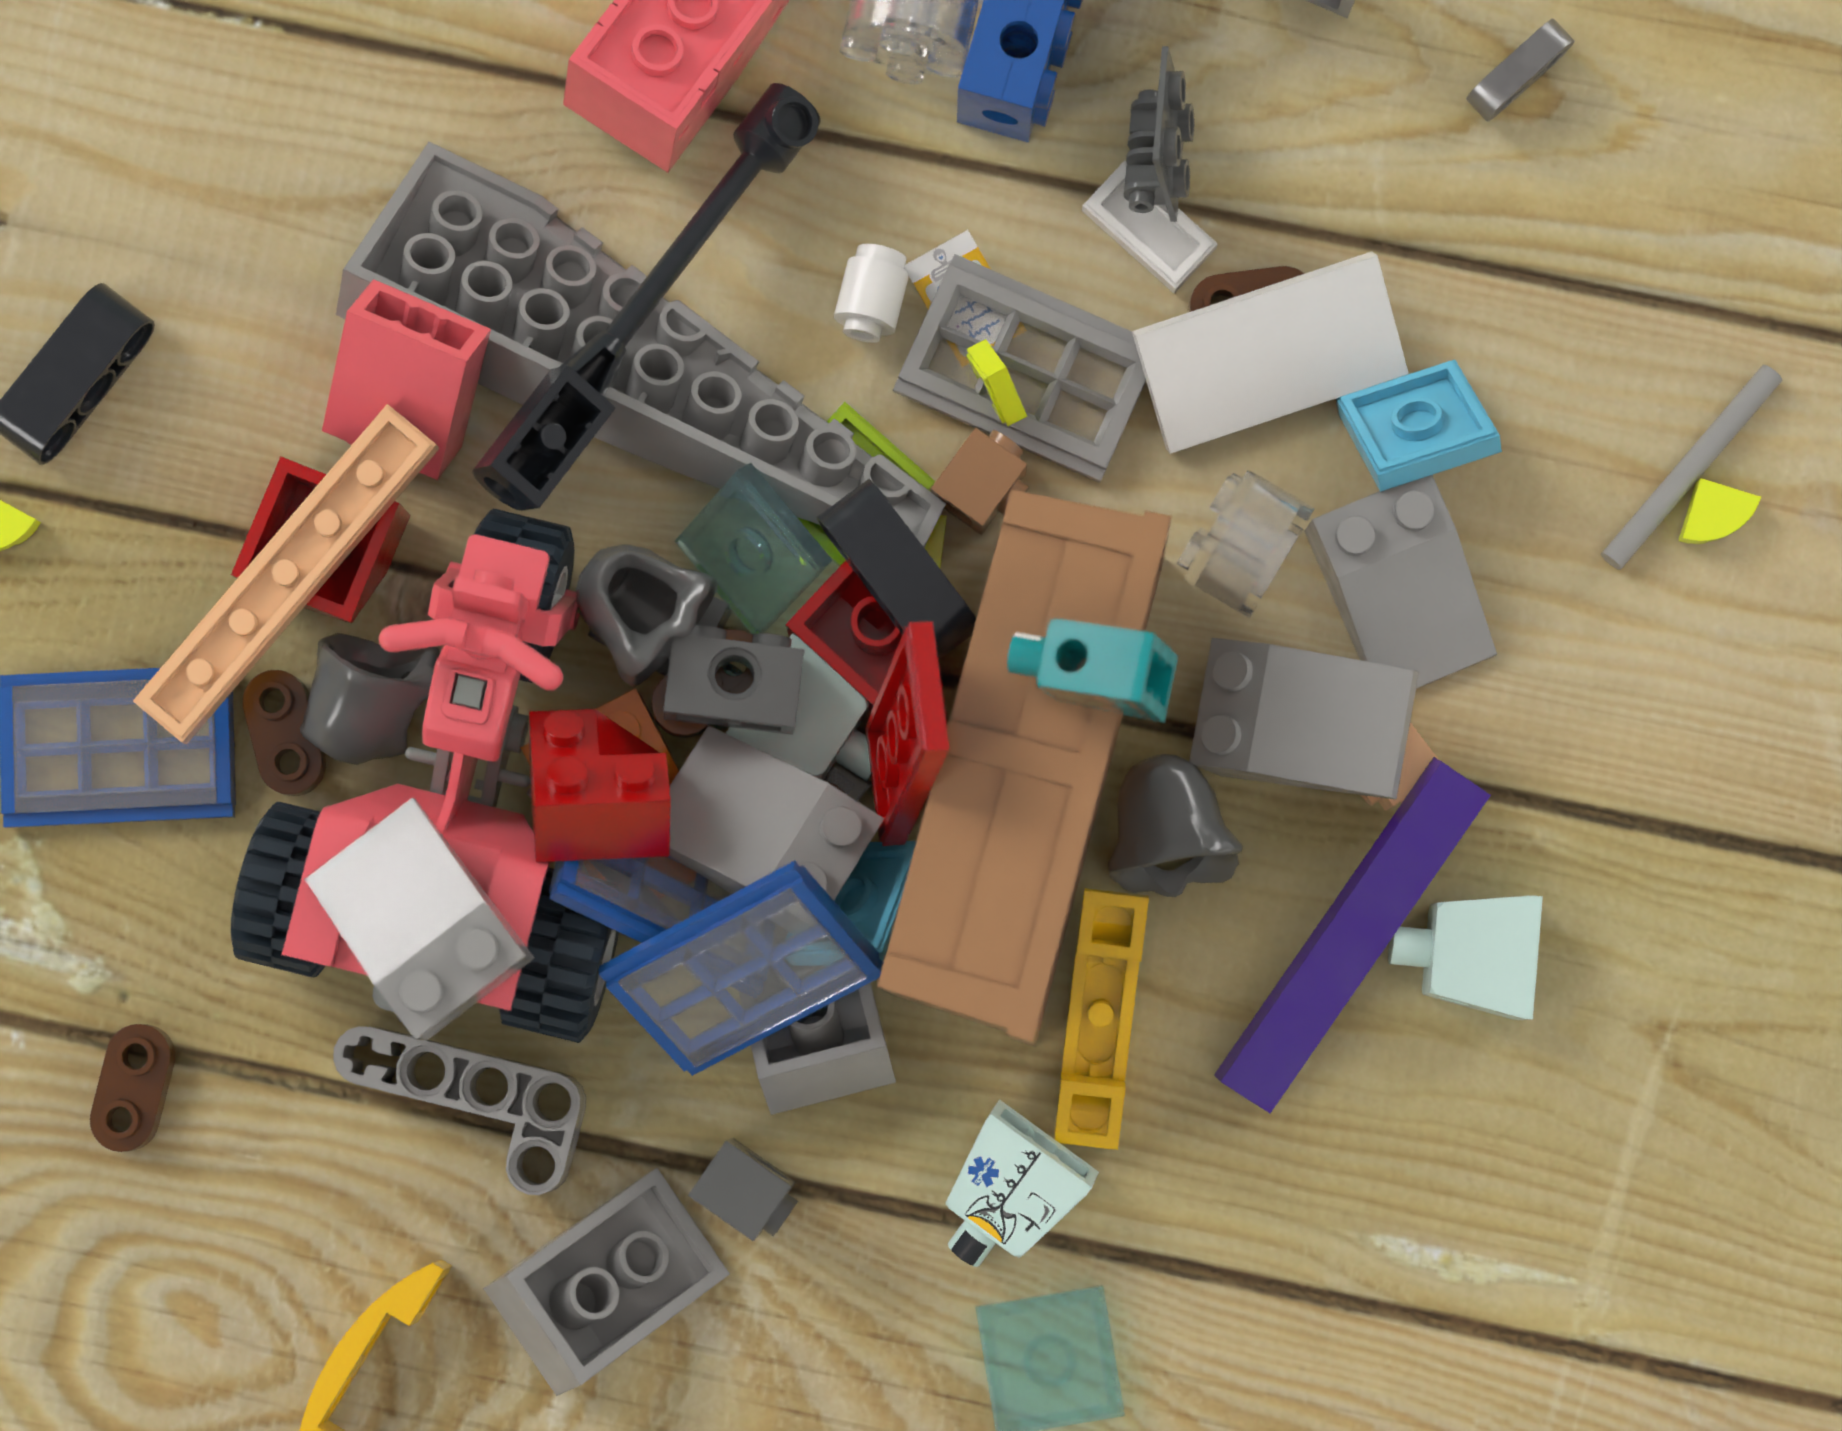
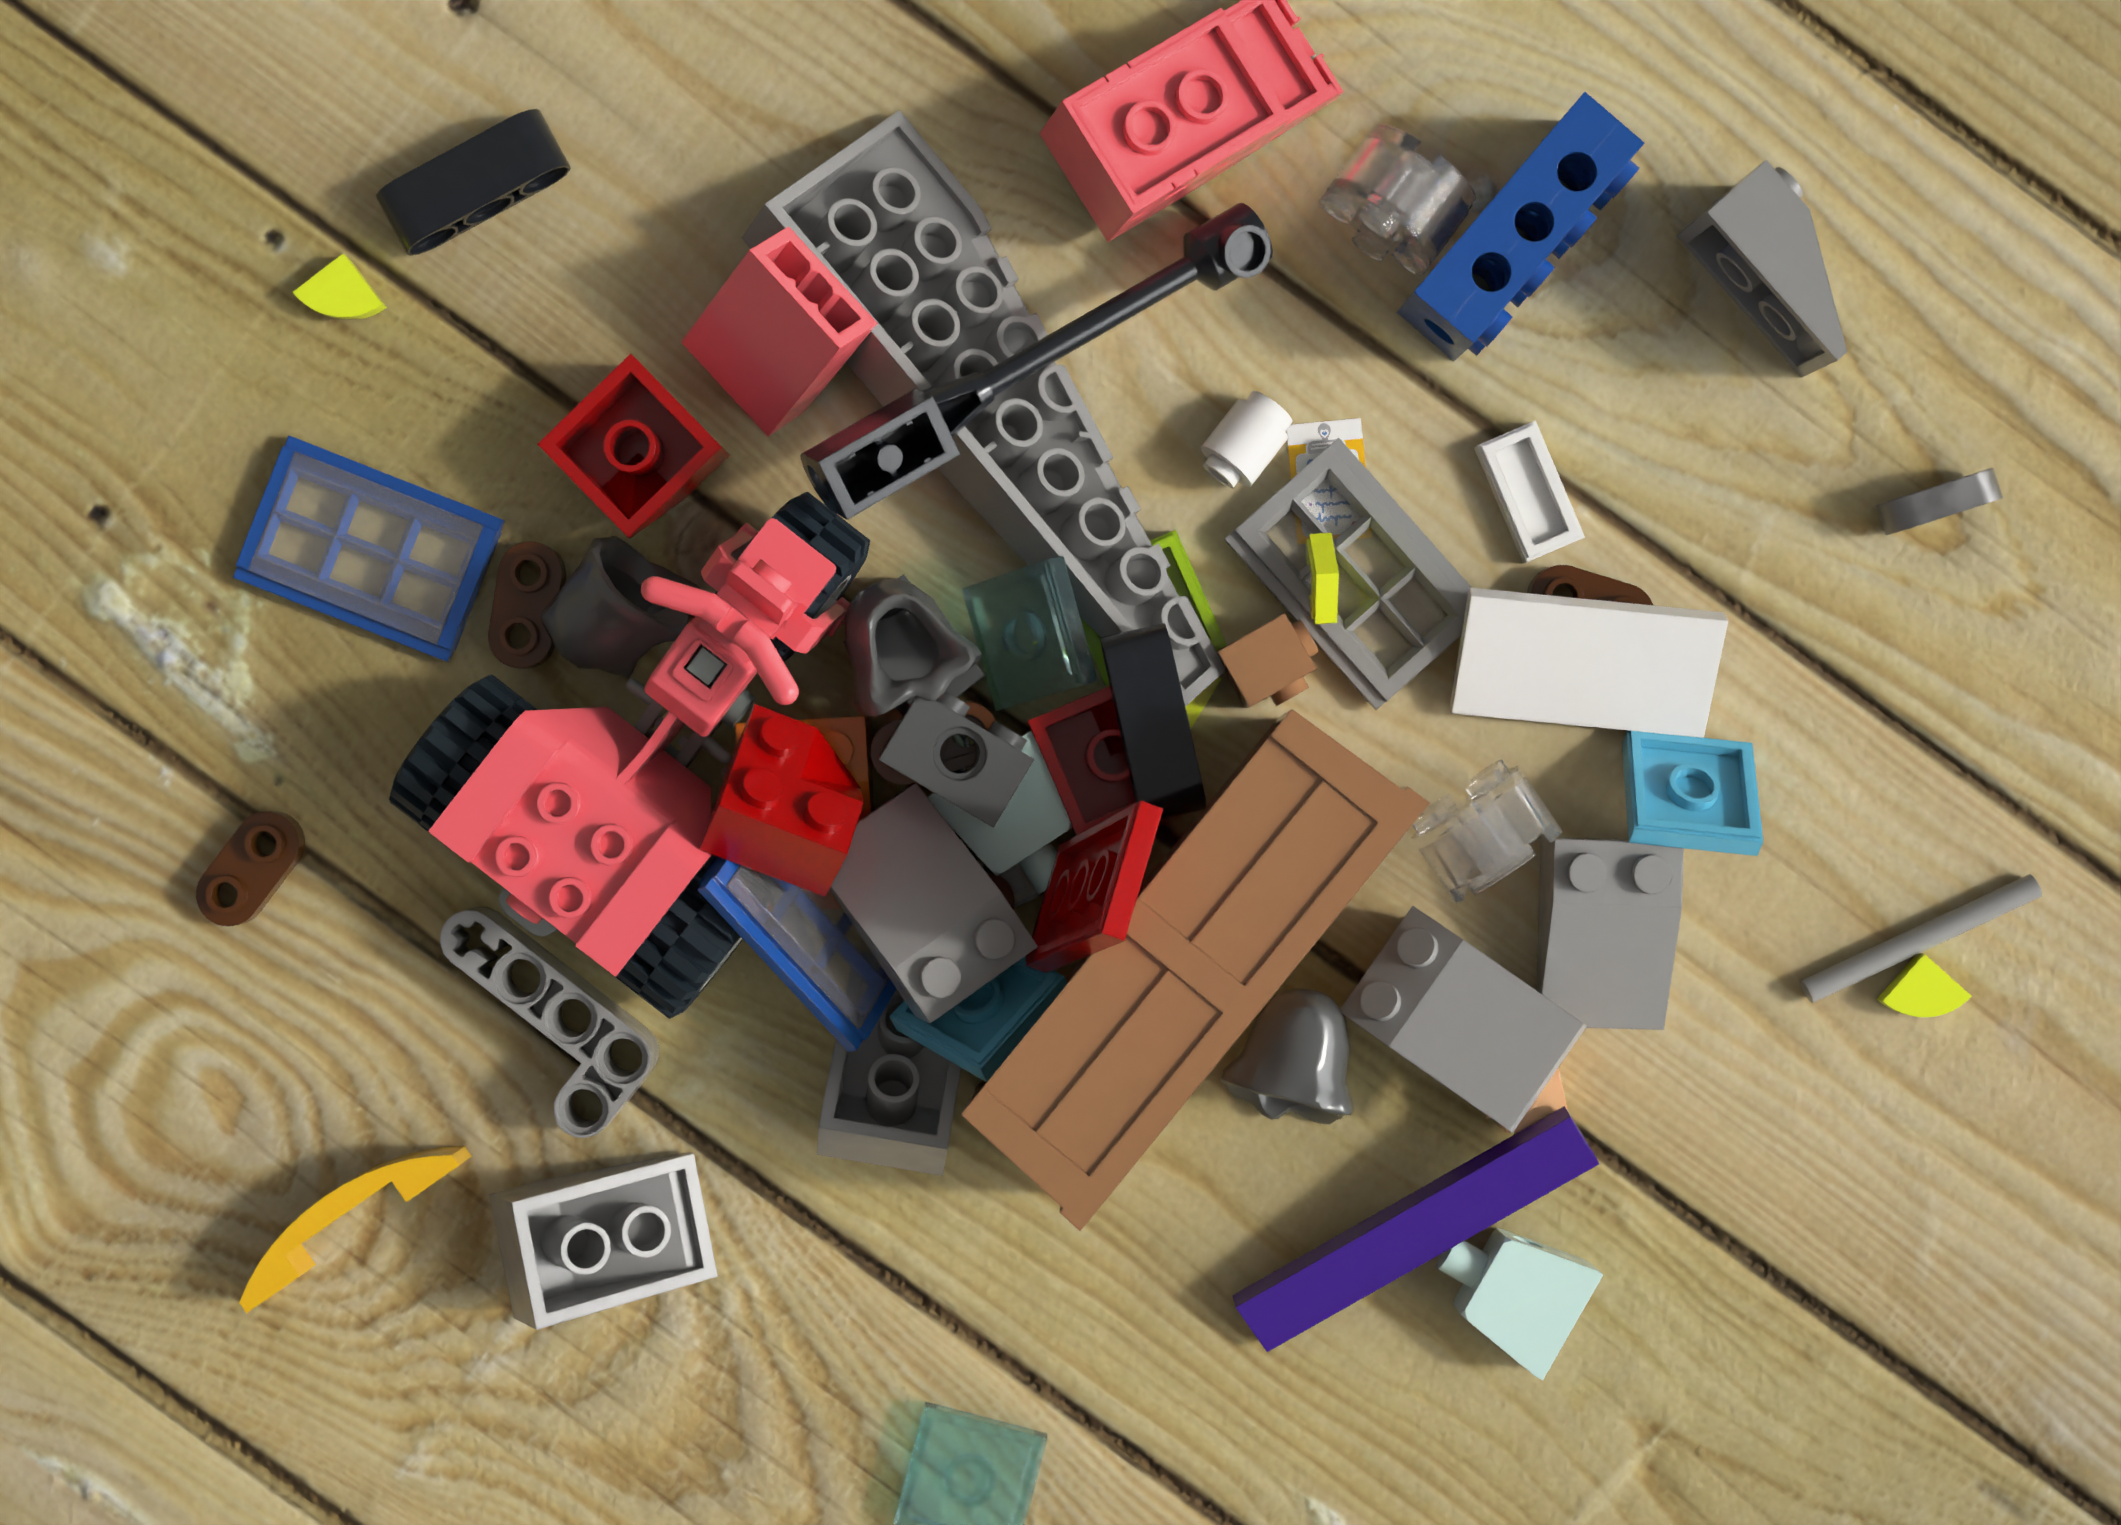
camera: 25 degrees right, 5 degrees up
(286, 574) = (588, 468): light nougat tile -> none
(418, 921) = (565, 860): slope -> none
(742, 968) = (847, 1027): clear piece -> none
(745, 1190) = (762, 1217): dark grey brick -> none
(1013, 1187) = (1008, 1318): light aqua torso -> none
(1100, 1018) = (1151, 1204): yellow slope -> none
(1123, 670) = (1316, 937): teal torso -> none
(1156, 138) = (1574, 417): dark grey hinge -> none

